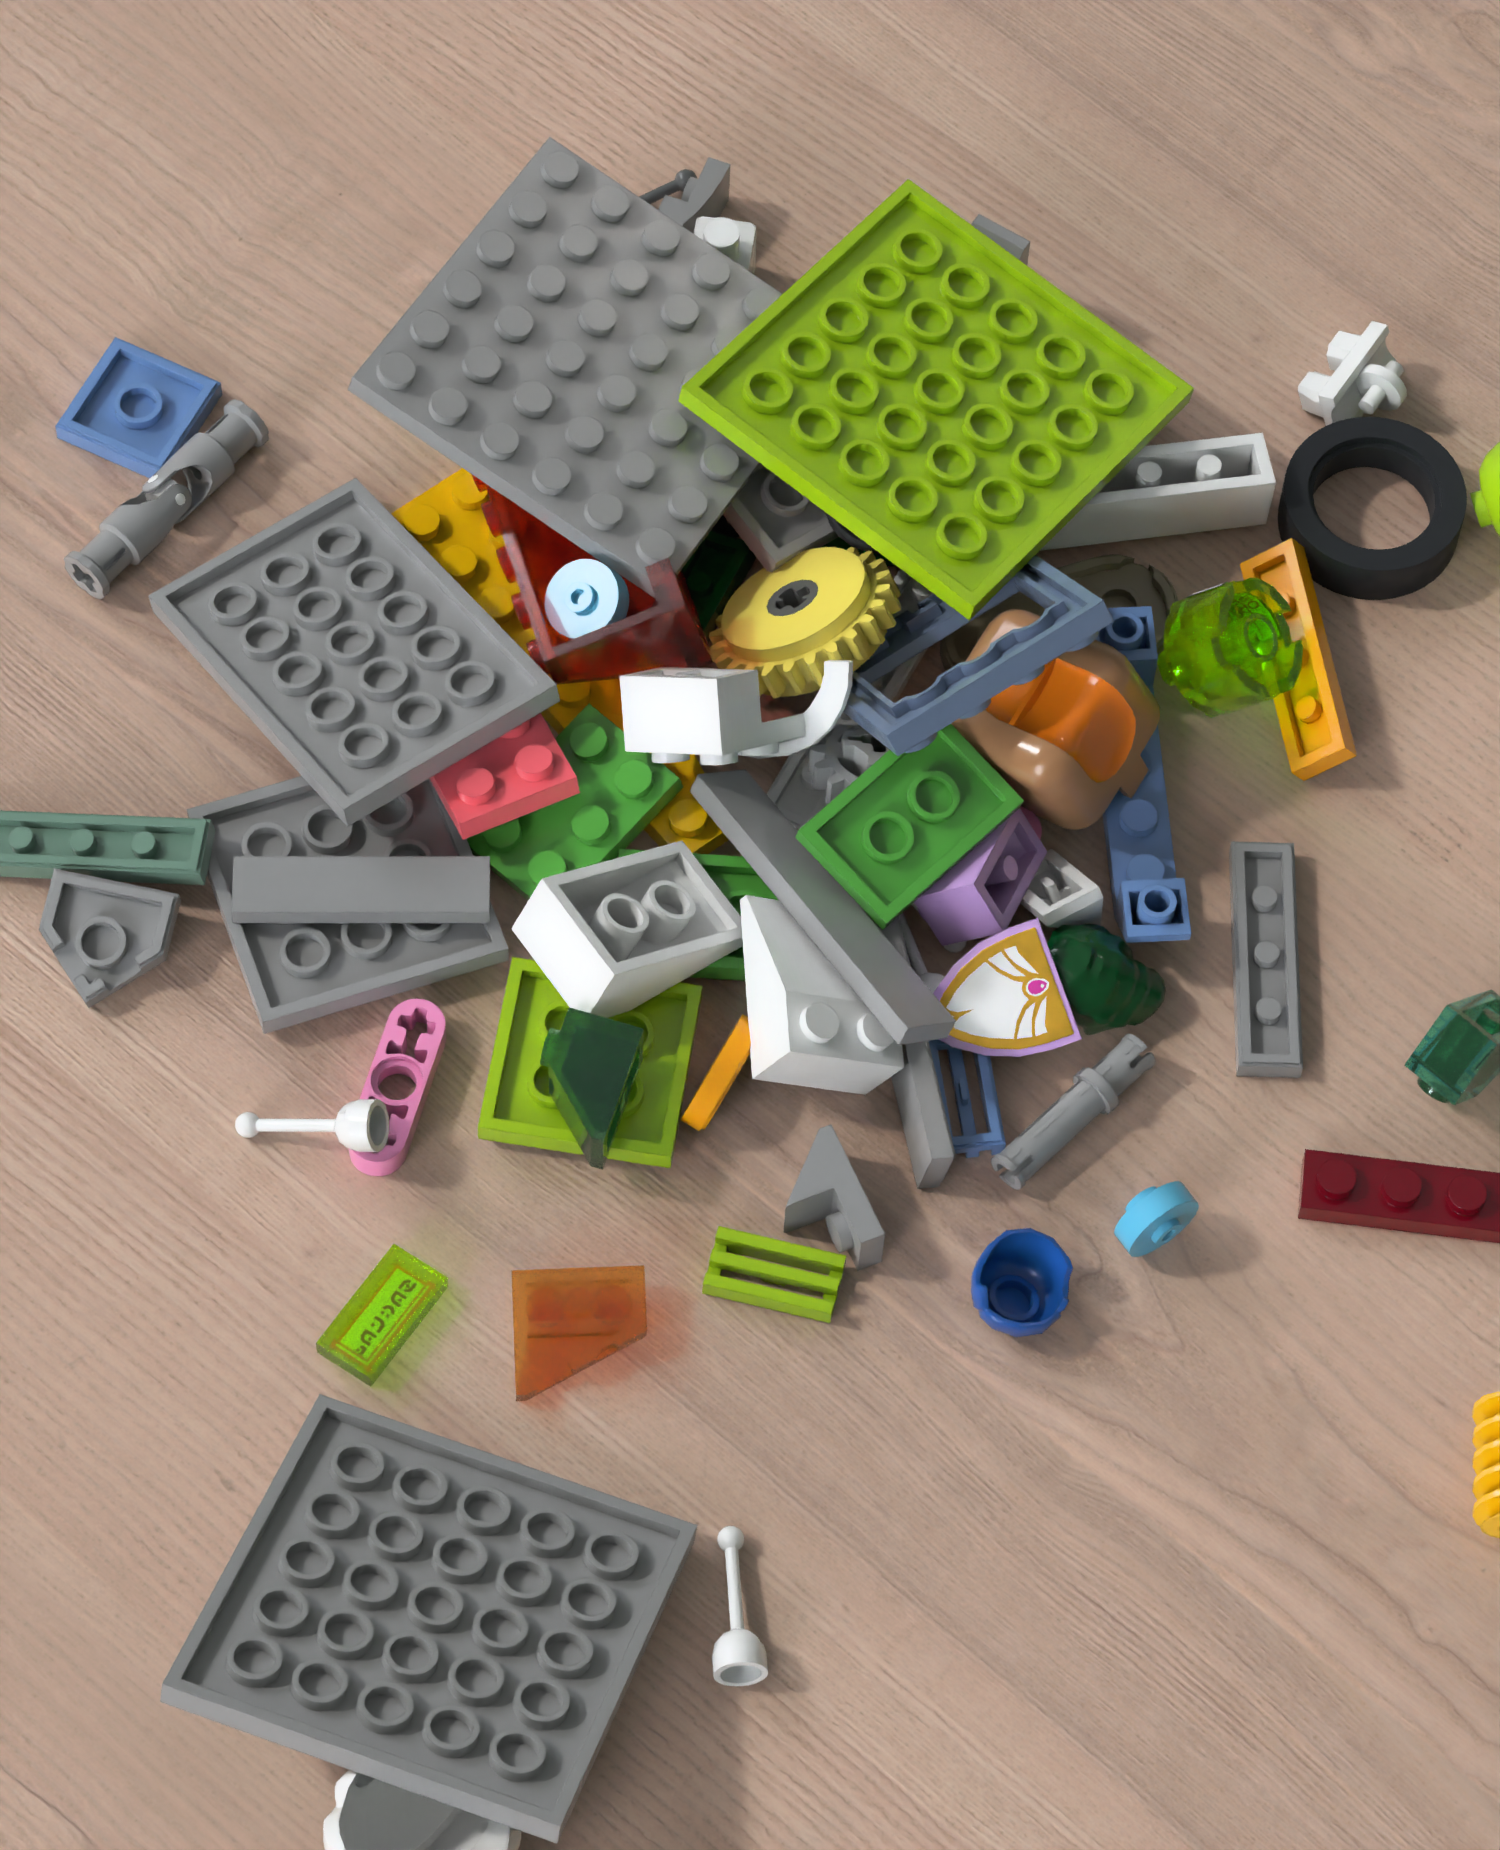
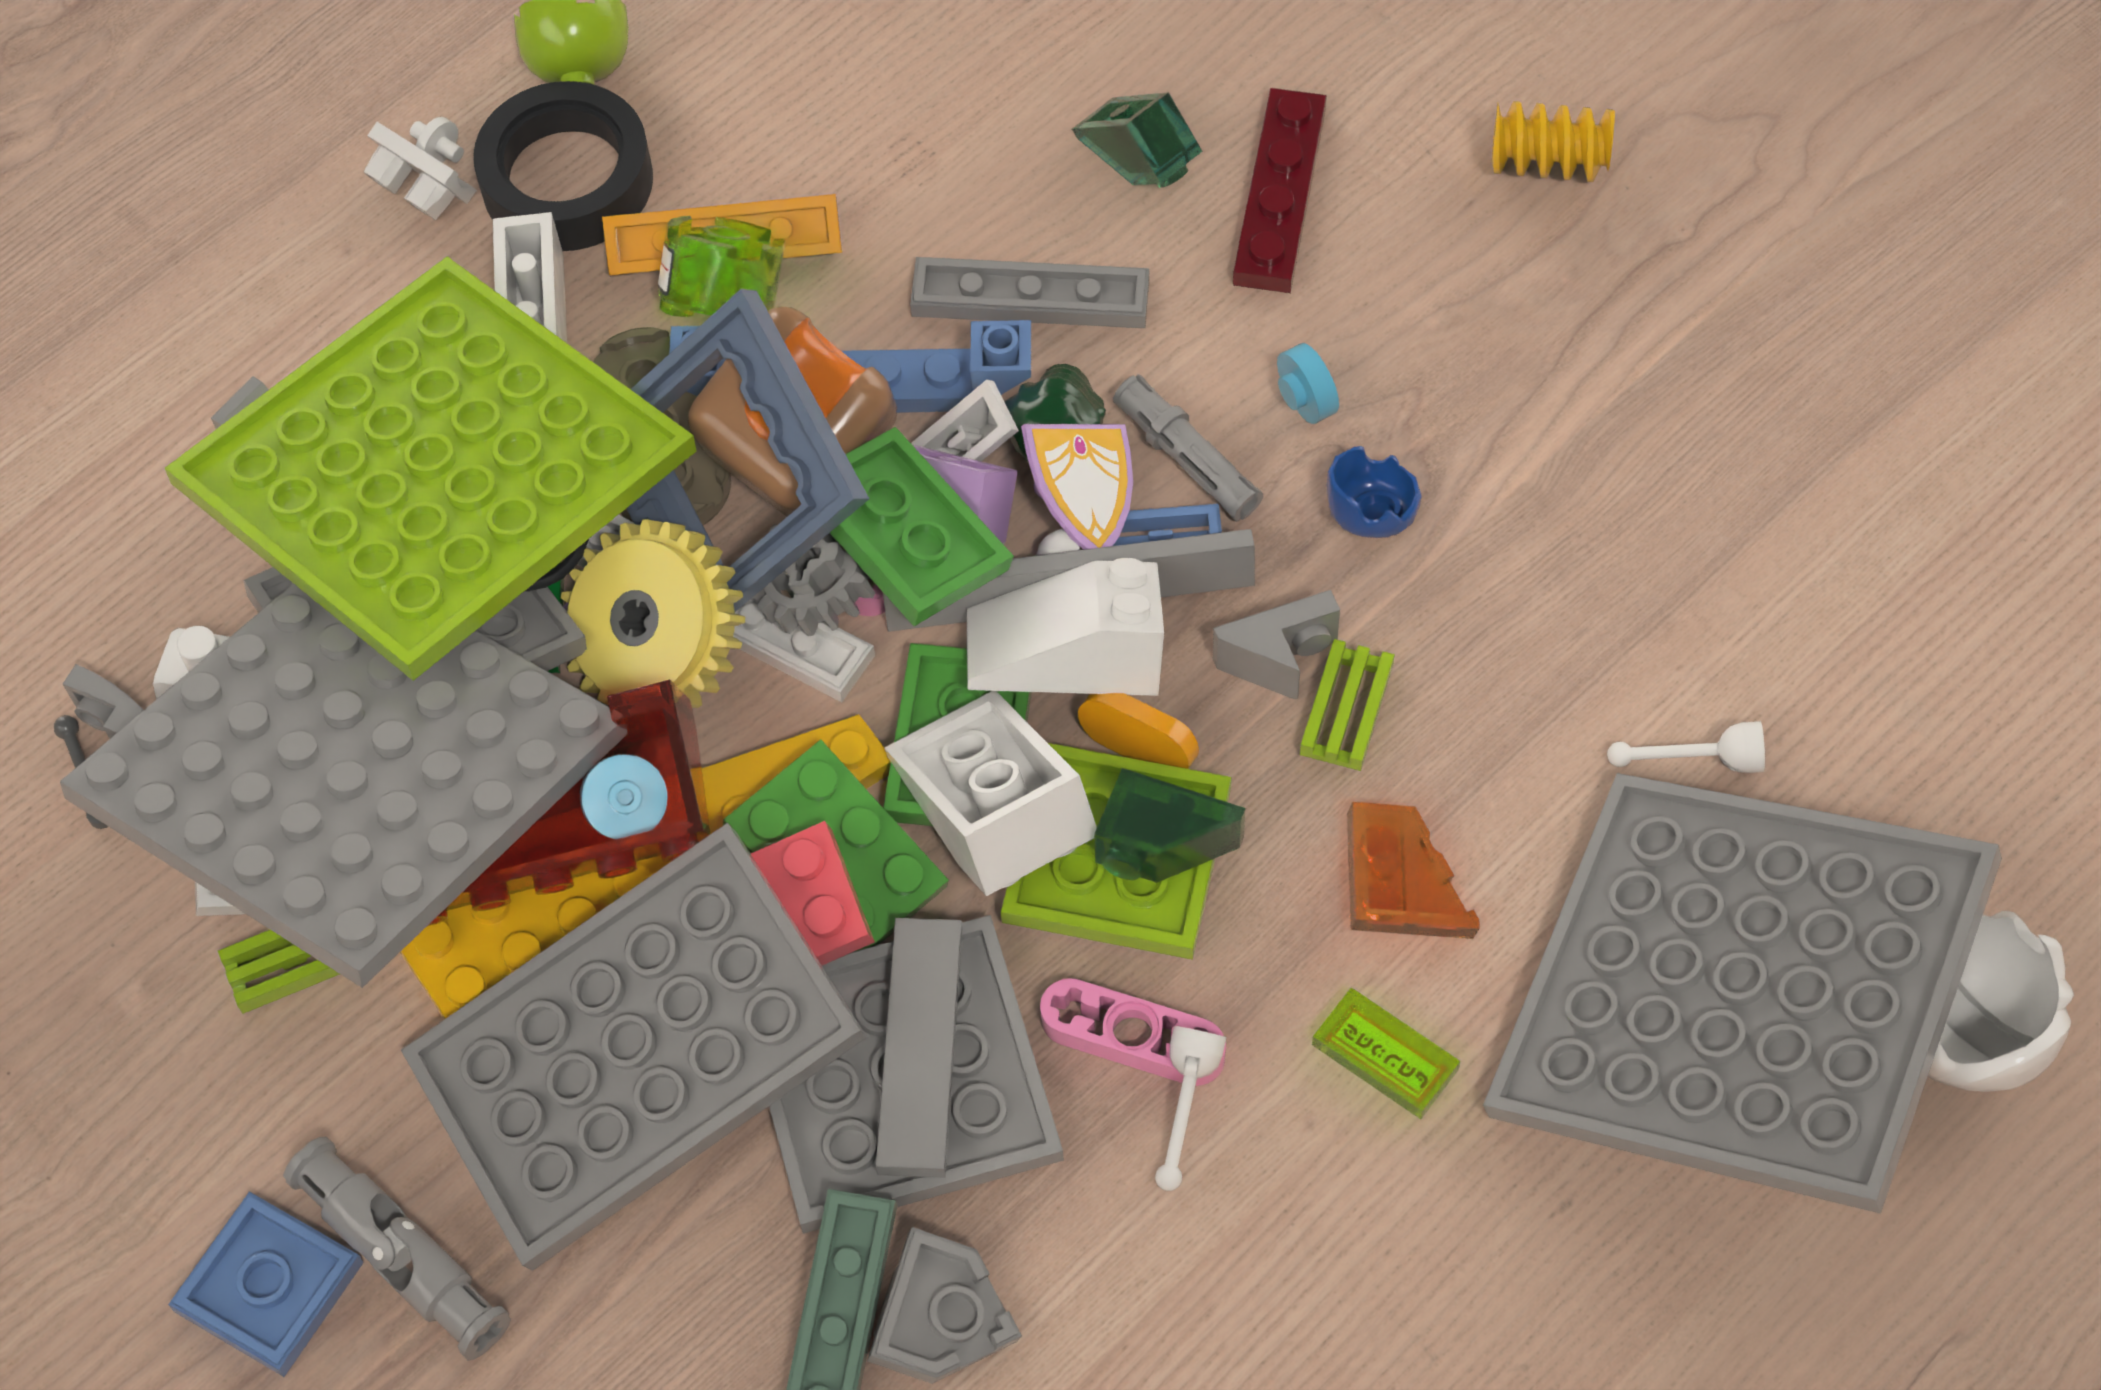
camera: 80 degrees left, 0 degrees up
(720, 714) = (775, 681): white piece -> none
(822, 908) = (979, 619): light grey tile -> none

